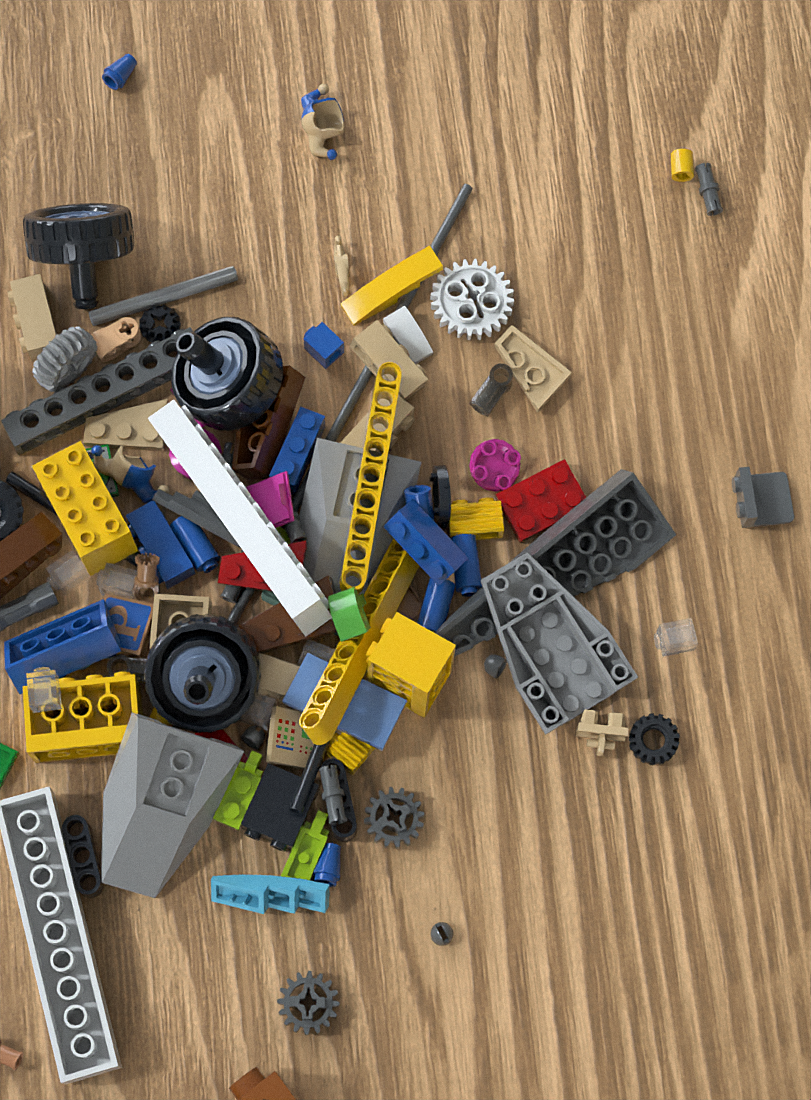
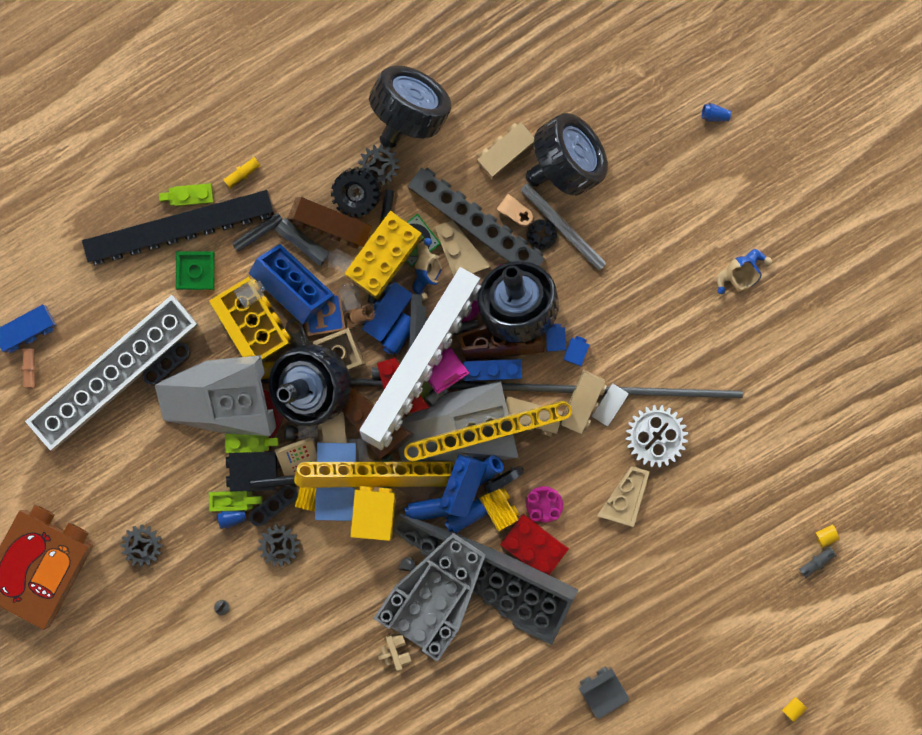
camera: 70 degrees right, 15 degrees up
(64, 358) = (482, 187): light grey gear -> none
(264, 891) = (194, 484): medium azure slope -> none
(299, 358) = (556, 338): none -> blue brick
(333, 795) = (271, 502): dark grey pin -> none
(341, 266) = (640, 336): tan piece -> none
(348, 613) = (385, 460): bright green brick -> none
(391, 285) = (640, 377): yellow slope -> none
(491, 390) = (594, 479): clear smoke piece -> none
(665, 727) = (397, 696): black tyre -> none
(676, 637) = (479, 673): clear brick -> none

